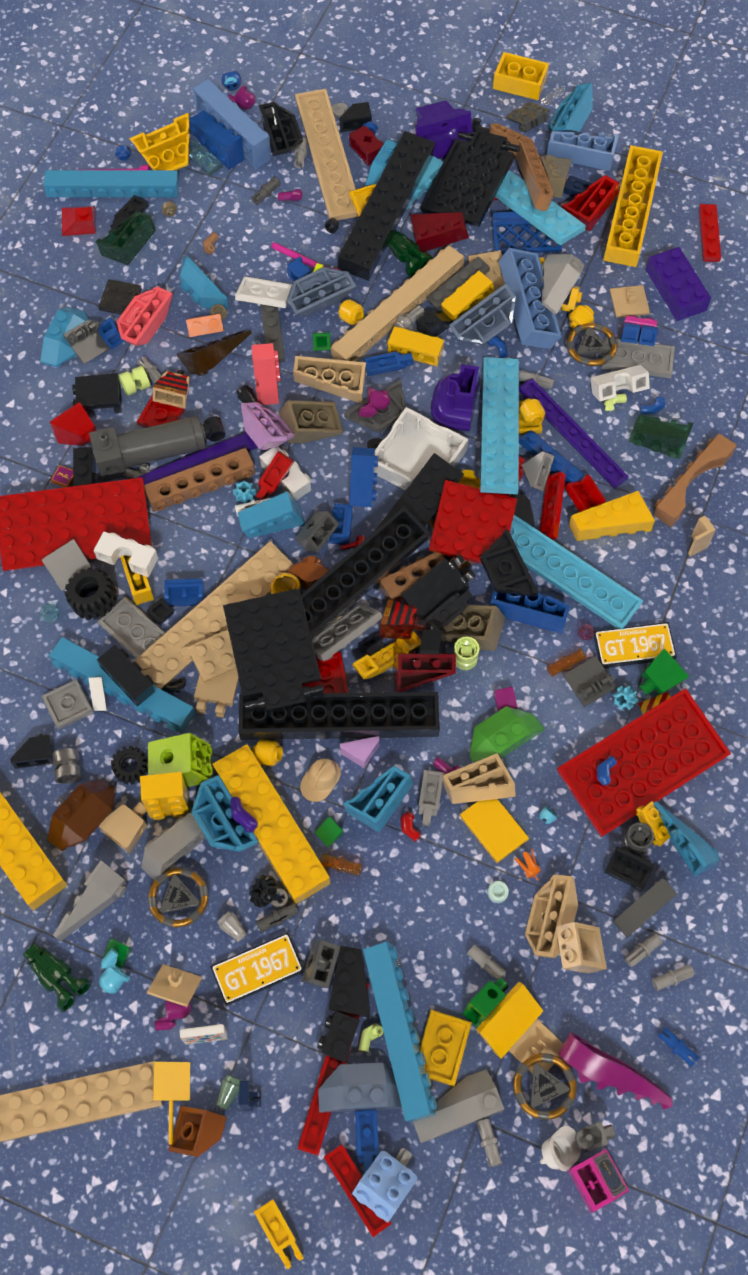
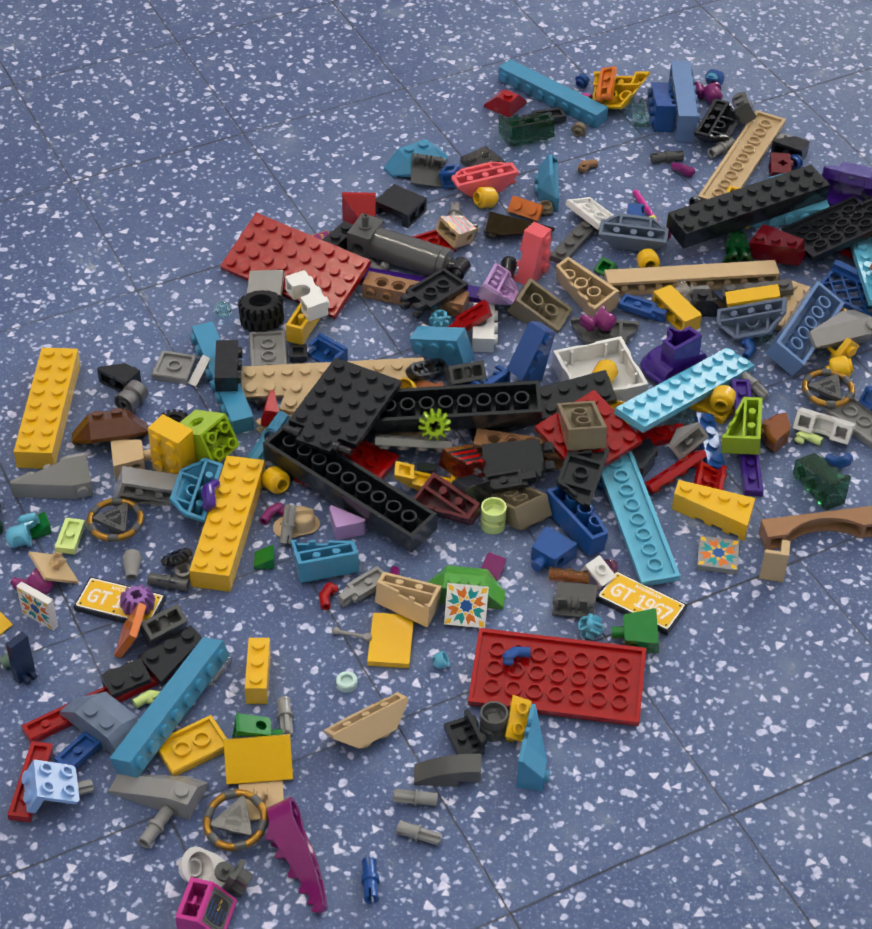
camera: 40 degrees right, 20 degrees down
(129, 385) = (429, 210): yellowish green wheel -> none
(153, 942) = (70, 536): none -> yellowish green plate
(157, 146) = (606, 84): none -> orange plate
(161, 336) = (485, 197): none -> yellow head
(201, 690) = (270, 409): none -> red slope
(219, 469) = (433, 292): none -> black tile
(228, 704) = (279, 420): none -> dark azure piece
(281, 555) = (434, 366): none -> black beam
(281, 953) = (134, 595): none -> medium lavender gear
(286, 99) = (743, 107): none -> dark grey brick
(290, 783) = (270, 511): none -> magenta arm
(301, 992) = (130, 630): none -> orange tile
(323, 789) = (287, 524): none -> light grey axle
(341, 864) = (250, 582): clear orange pin -> none
(358, 608) = (438, 430): none -> lime gear
(421, 450) = (609, 366): none -> yellow head
(429, 941) = (257, 671): none -> yellow brick
(470, 522) = (582, 425): none -> dark tan slope
(478, 840) = (367, 636): none -> light grey hinge
(525, 753) = (466, 605): none -> tile
(532, 869) = (387, 685): orange piece -> none
(534, 650) = (552, 550): none -> blue torso
(577, 429) = (745, 429): none -> lime wedge
(578, 940) = (384, 754): tan window -> none
(584, 642) = (599, 571): none -> white bracket
(589, 412) = (775, 431): none -> dark orange piece
(647, 559) = (718, 555): none -> tile

